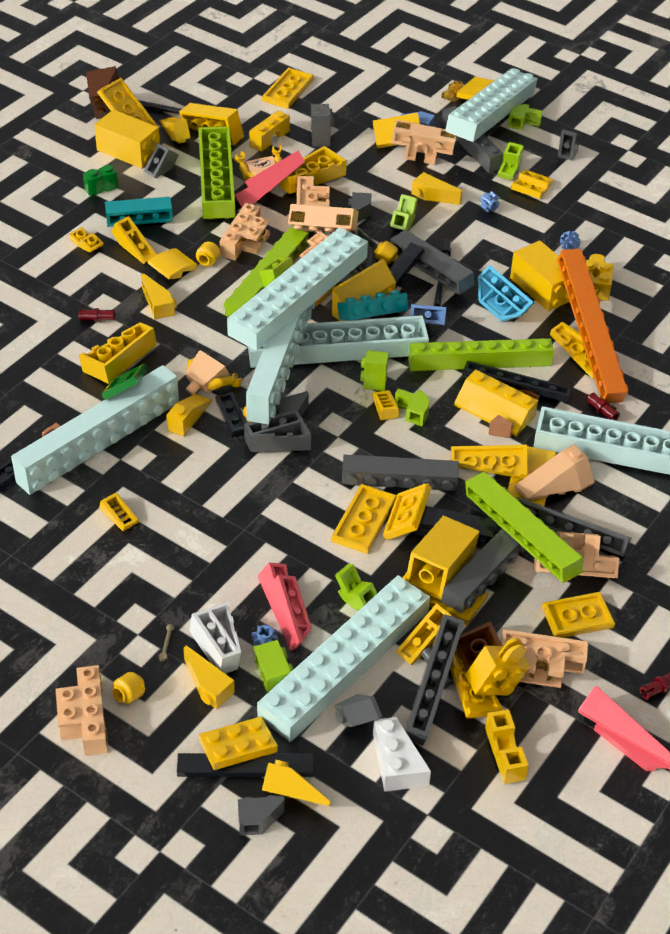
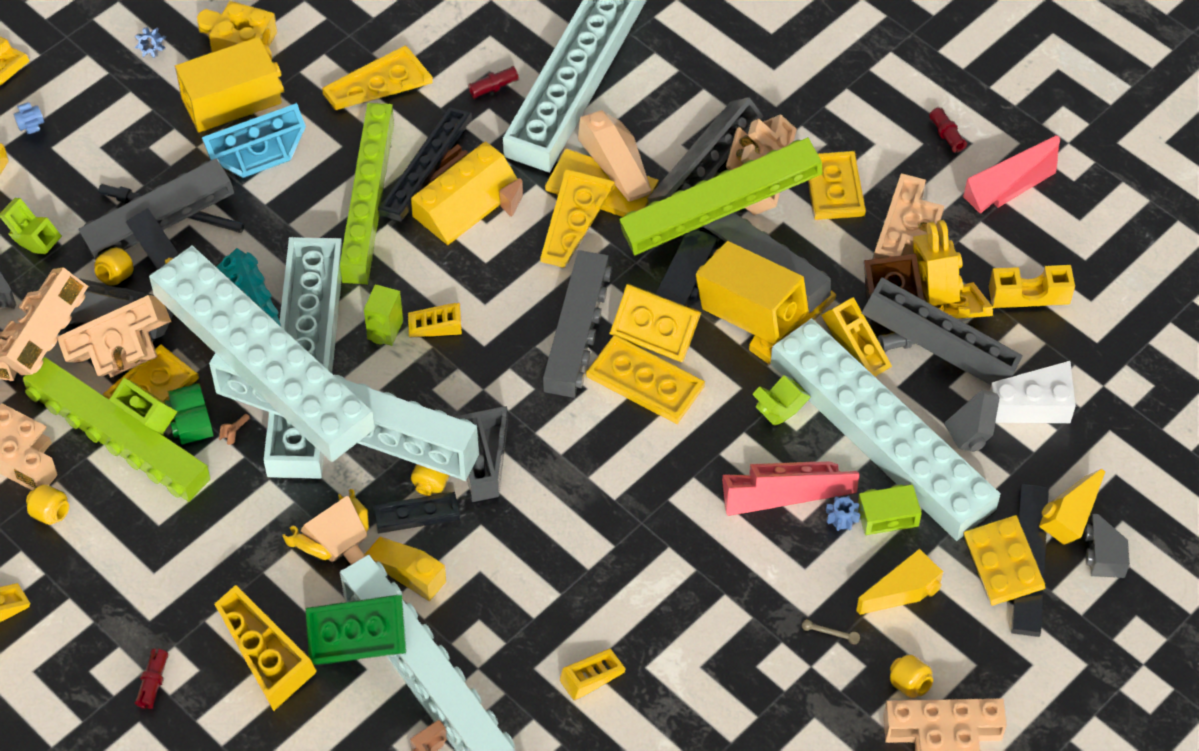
camera: 80 degrees left, 10 degrees up
(158, 298) = (137, 586): yellow slope -> none
(172, 263) = (50, 560): yellow slope -> none
(217, 637) = (844, 563): white wedge -> none
(415, 405) = (453, 281): lime brick -> none
(431, 314) = (272, 238): medium blue slope -> none
(592, 326) = (358, 49): orange brick -> none

